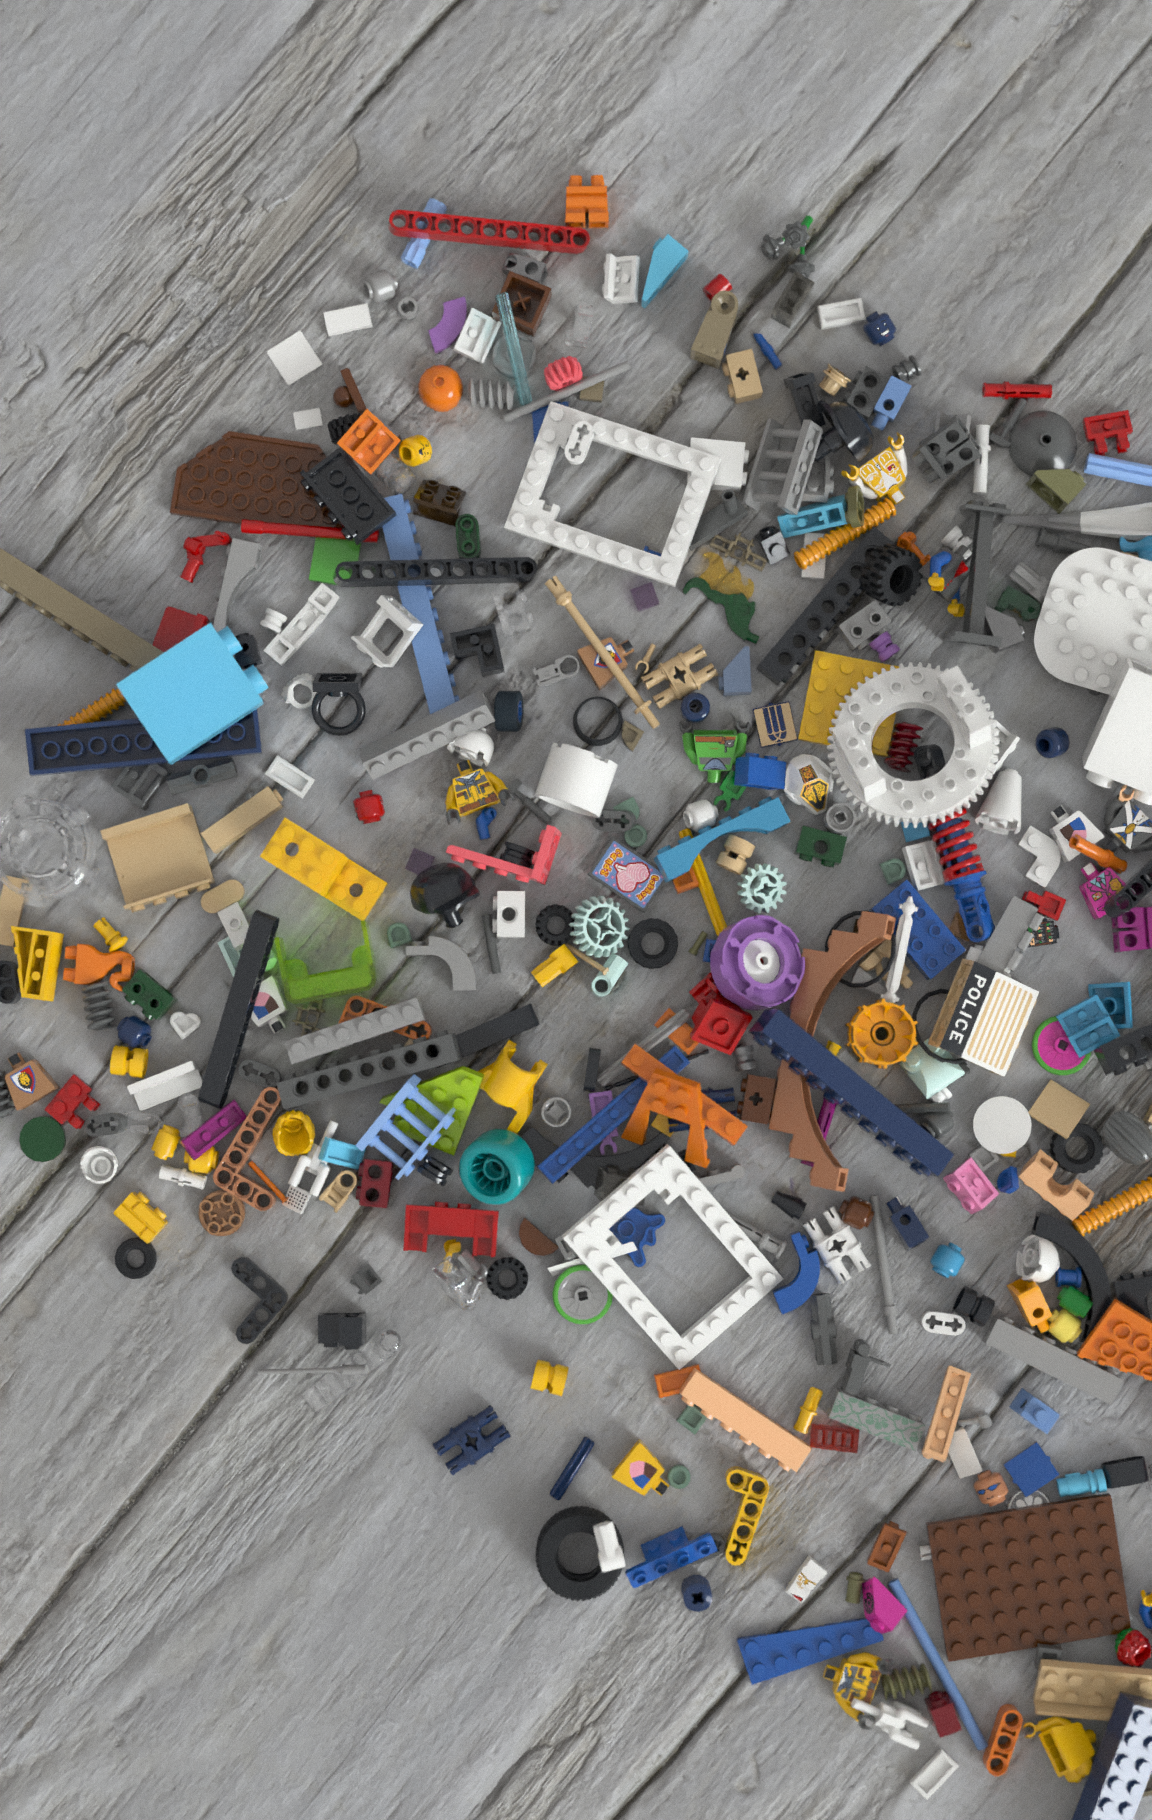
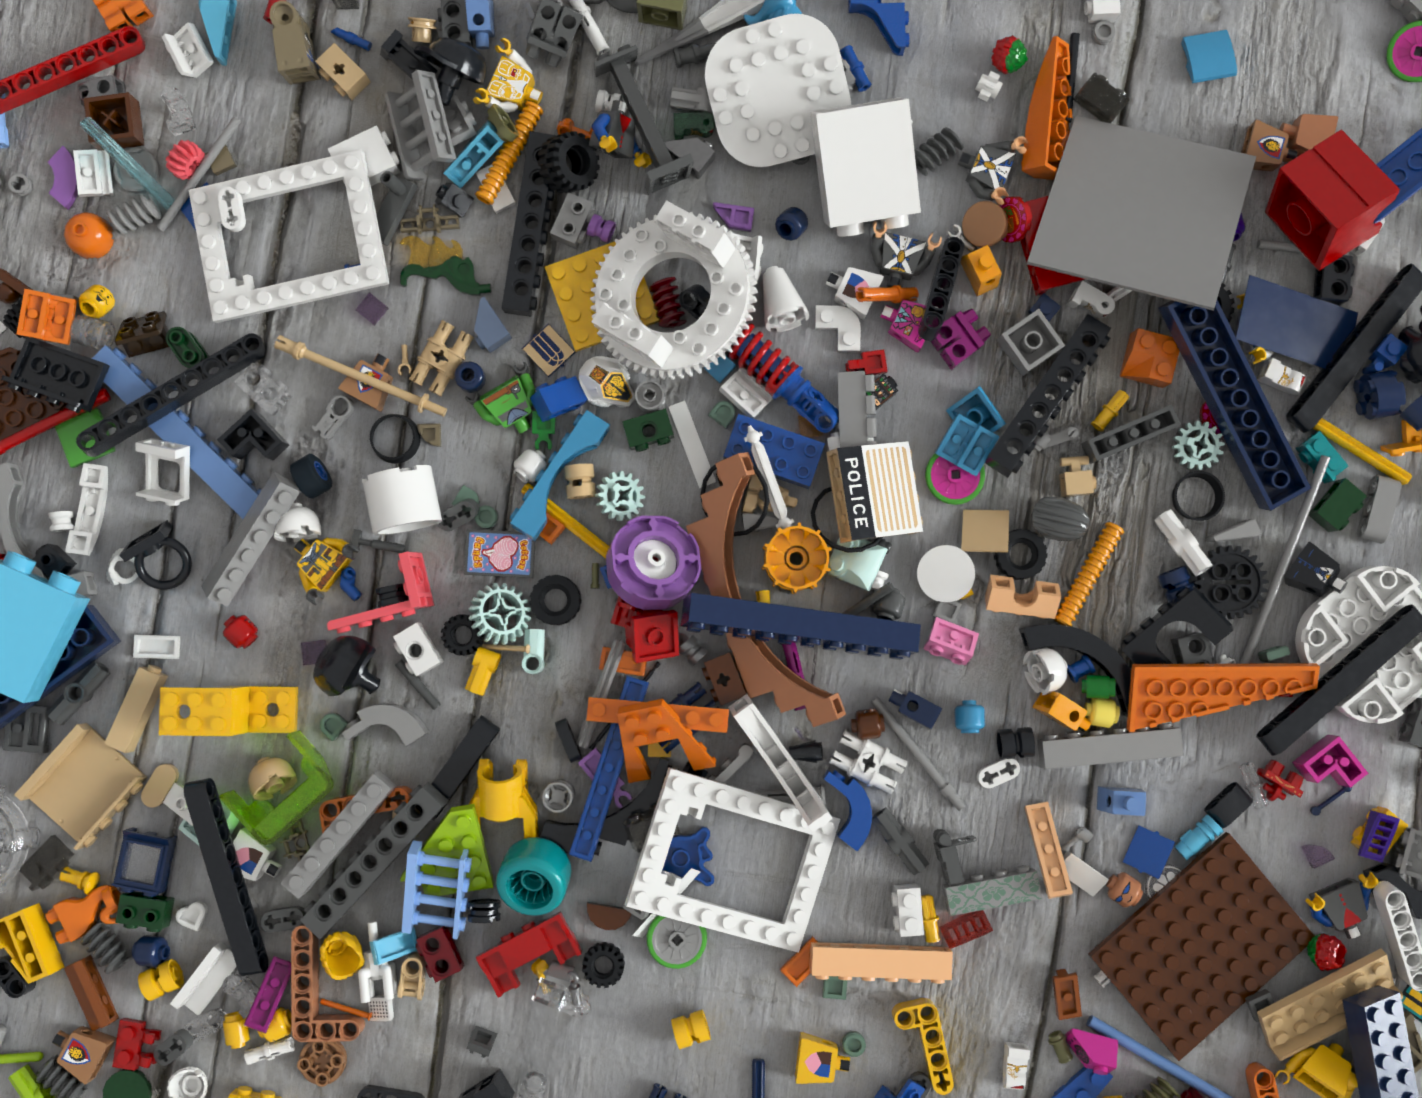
camera: 35 degrees left, 0 degrees up
(61, 1036) = (91, 993): none -> dark orange panel
(89, 903) = (45, 862): none -> clear smoke bracket
(172, 954) = (144, 862): none -> dark blue window
(322, 947) = (270, 777): none -> tan cylinder
(763, 1197) = (781, 763): none -> white arch
(794, 1391) = (908, 910): none -> white brick
(850, 878) = (691, 442): none -> white sticker
(1007, 705) = (735, 216): none -> medium lavender tile
(1008, 1180) = (979, 617): blue tile -> none

